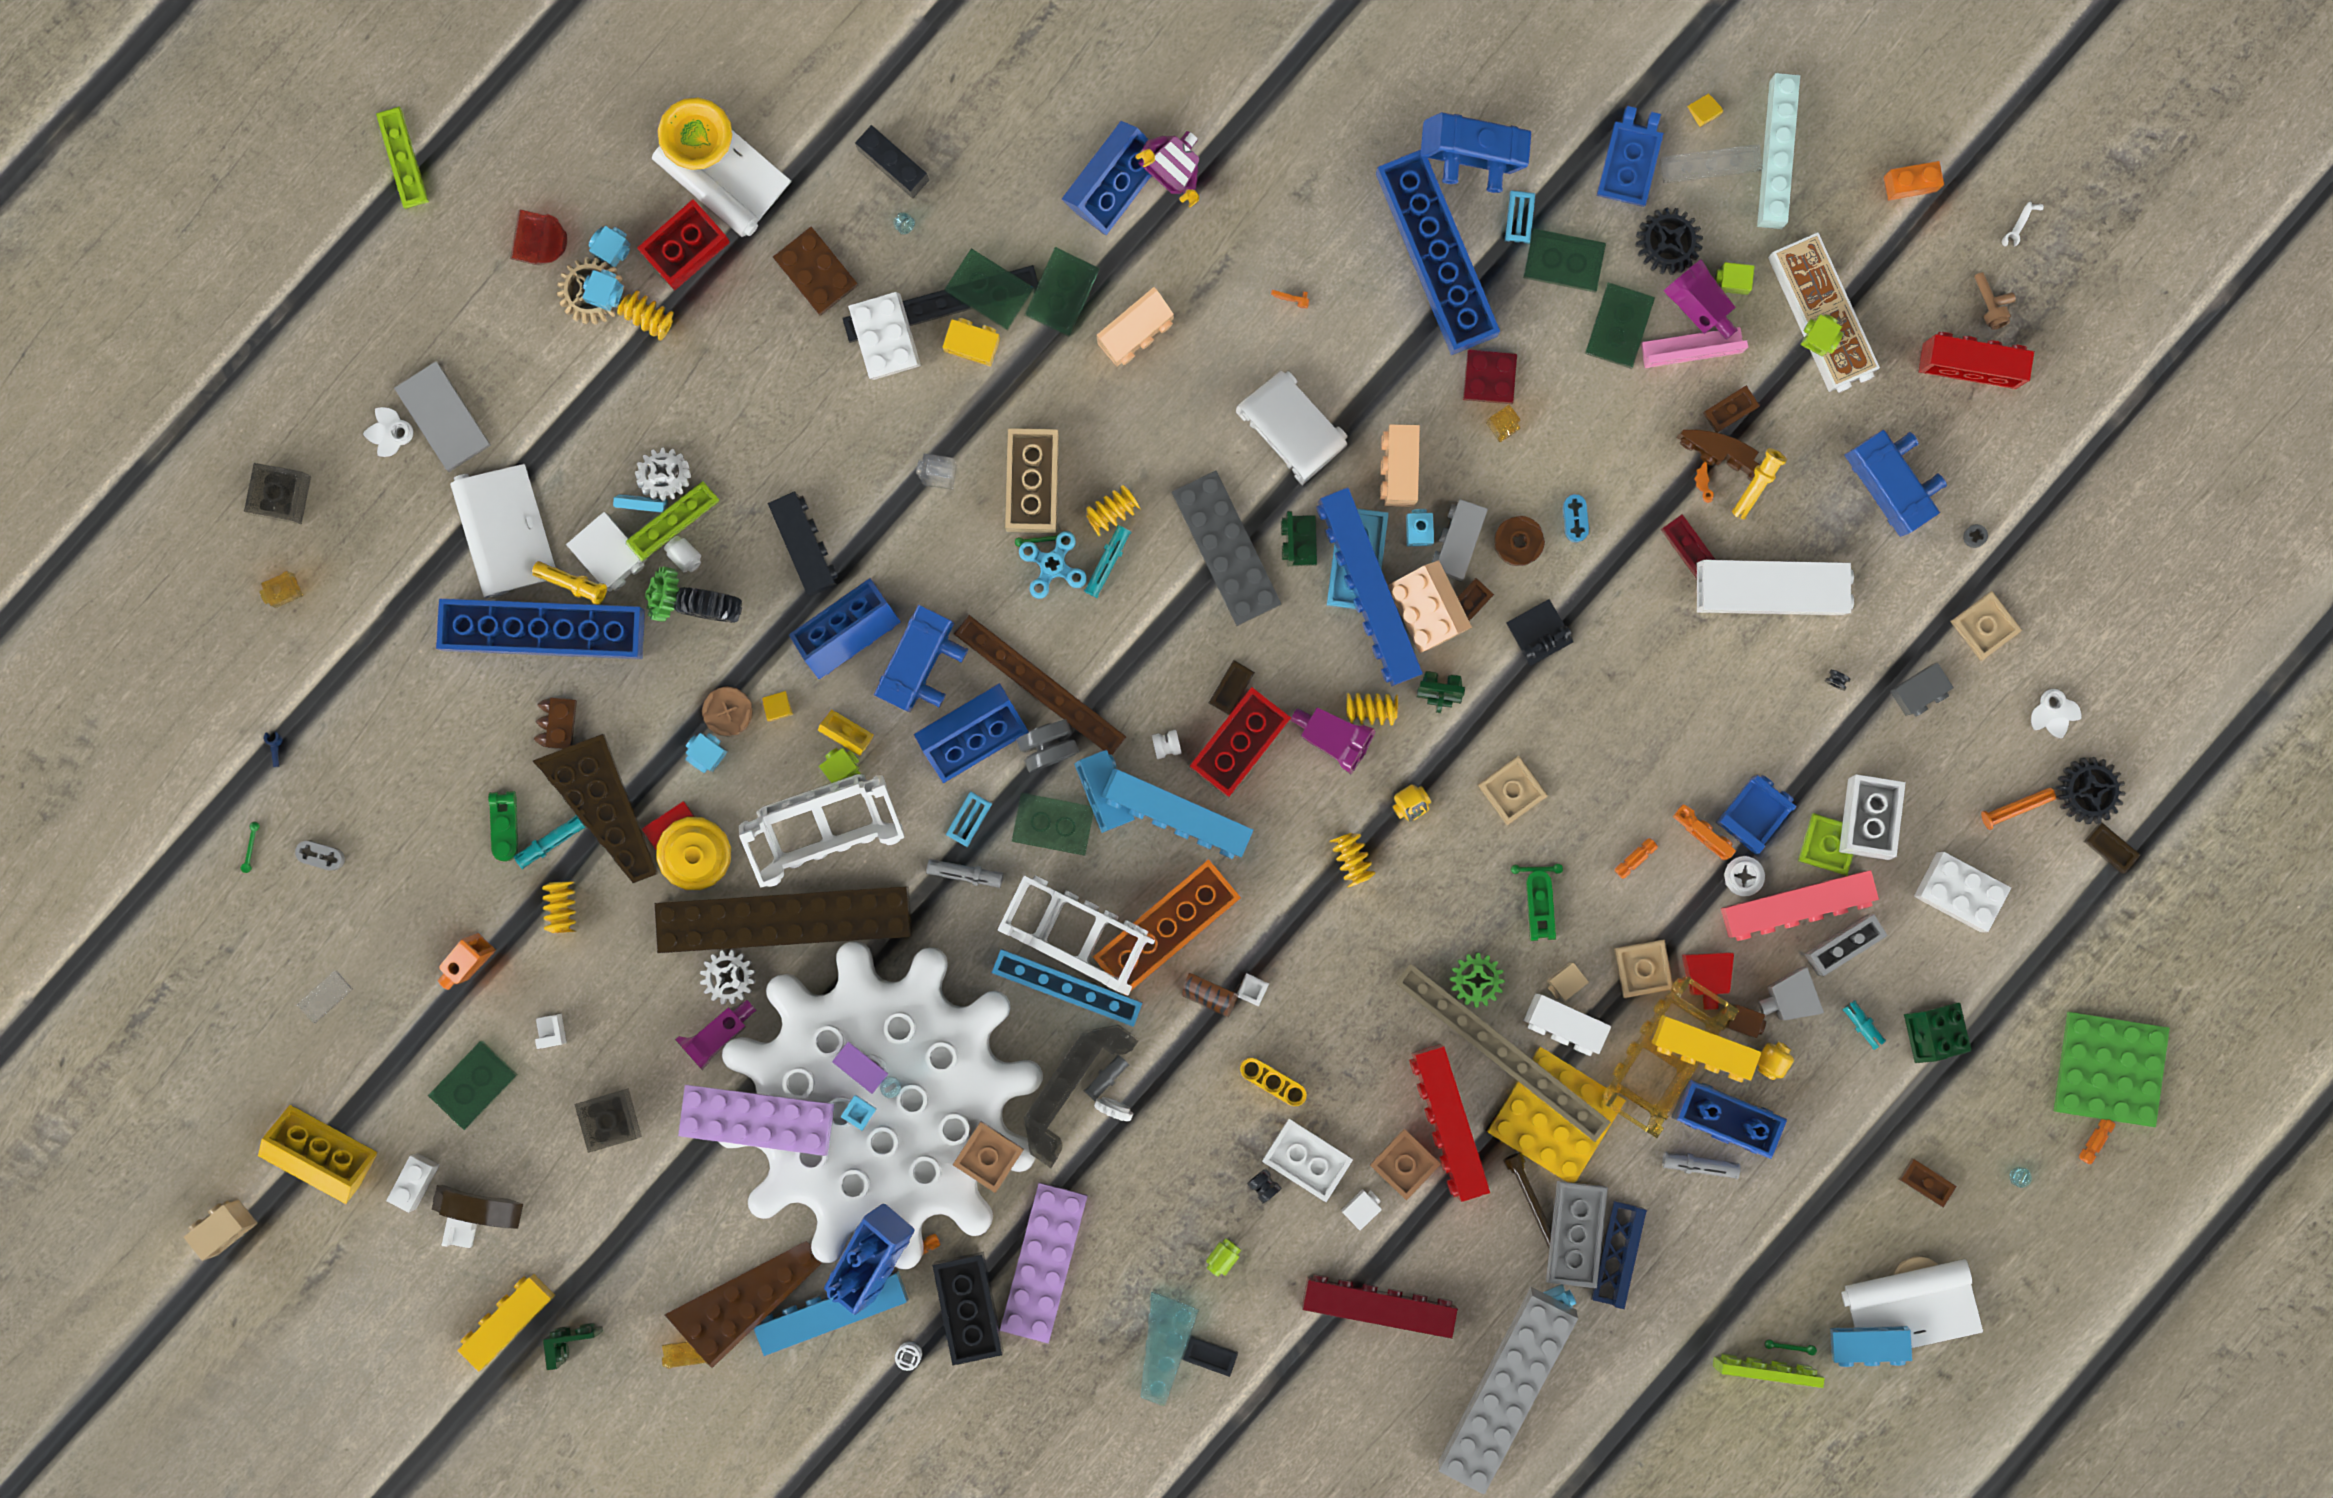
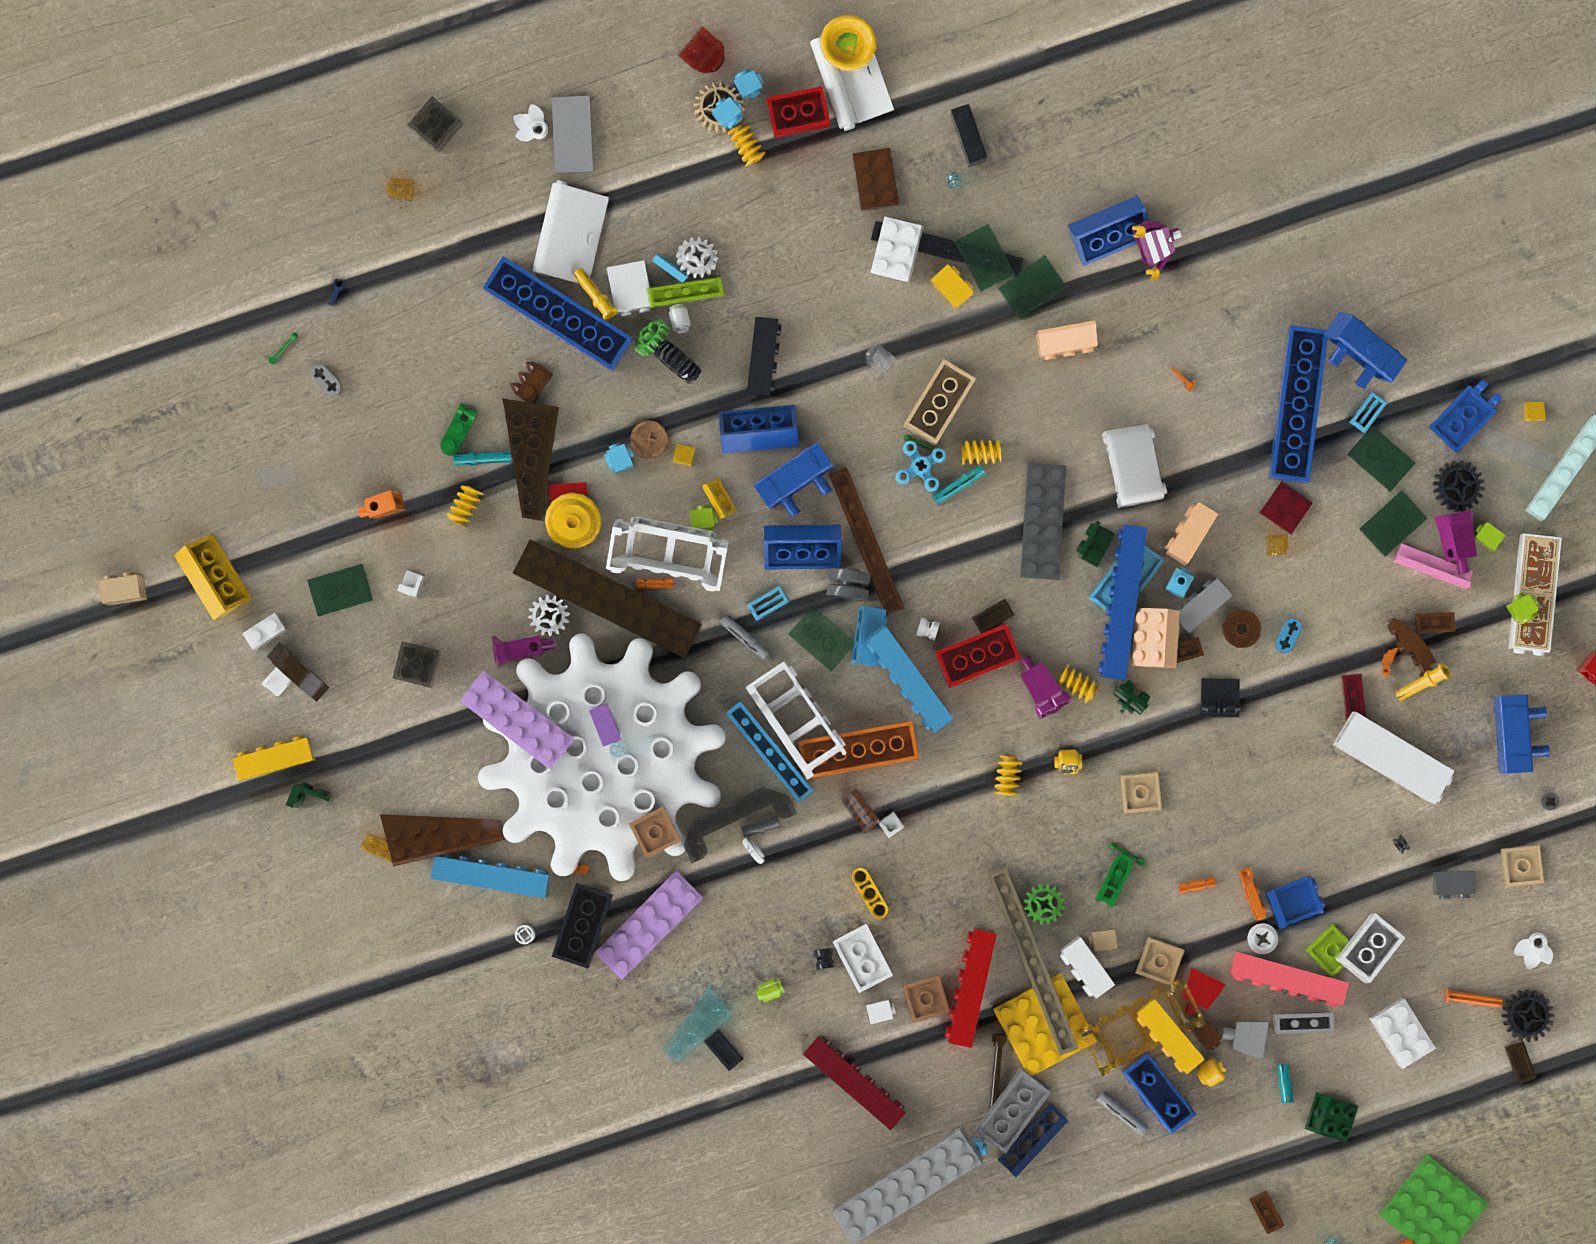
camera: 35 degrees right, 0 degrees up
(827, 871) = (654, 583): none -> orange axle
(858, 1112) = (587, 753): medium azure plate -> none
(869, 1259) = (538, 853): blue piece -> none

